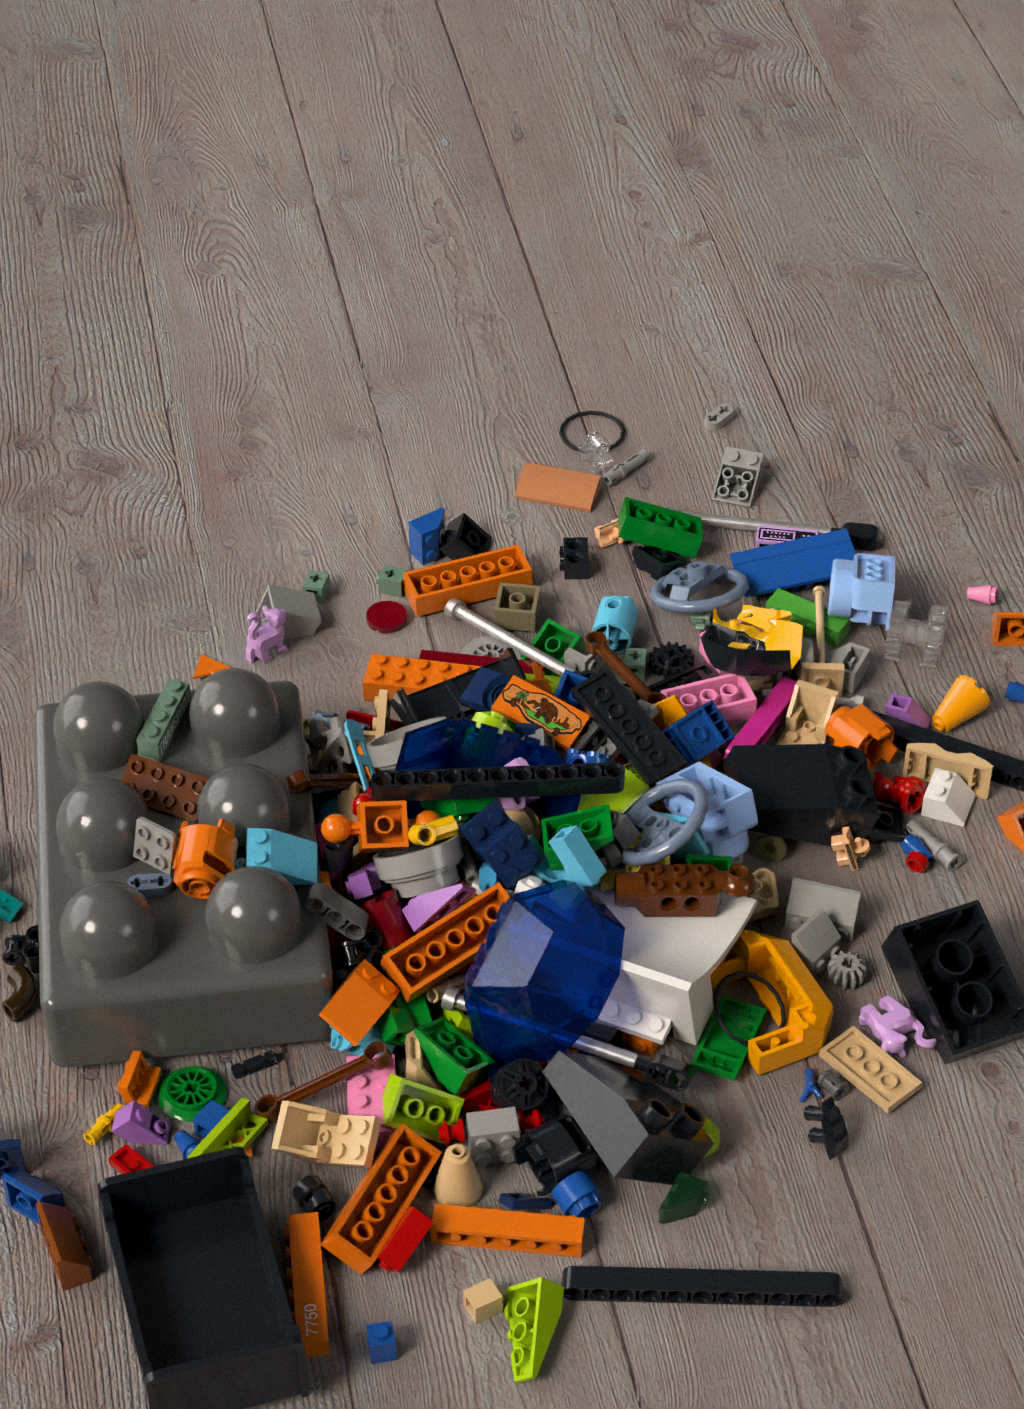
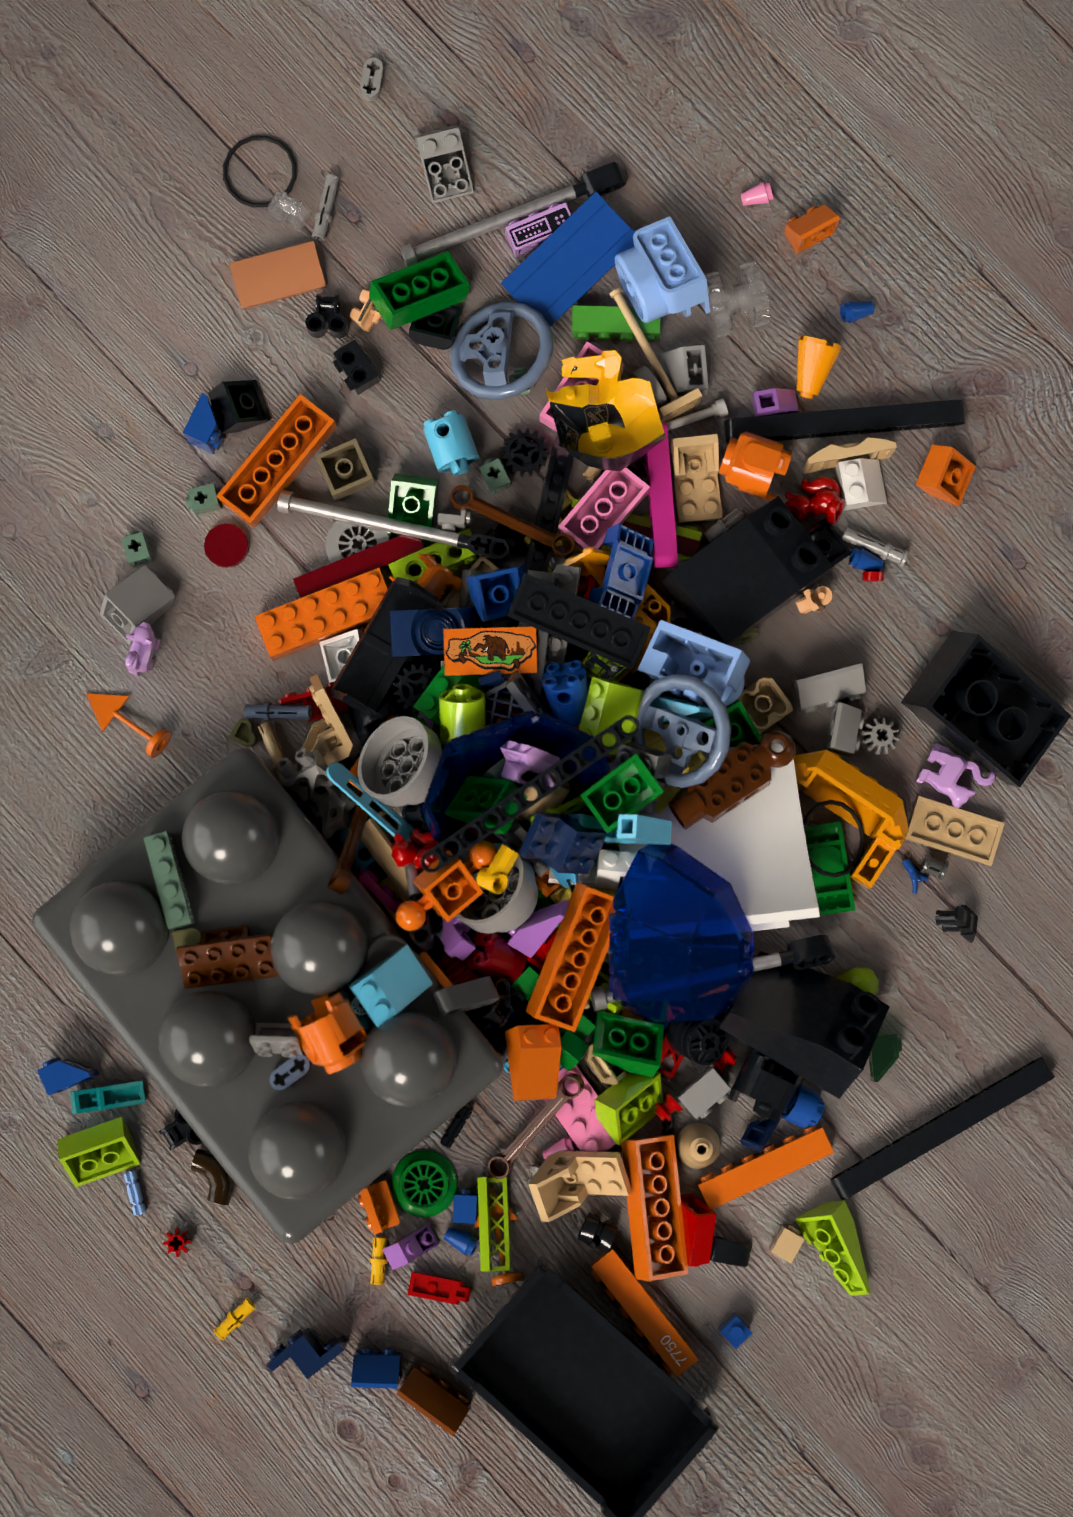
camera: 30 degrees left, 40 degrees up
(423, 1276) = (730, 1252): none -> black panel
(574, 522) = (328, 314): none -> black piece

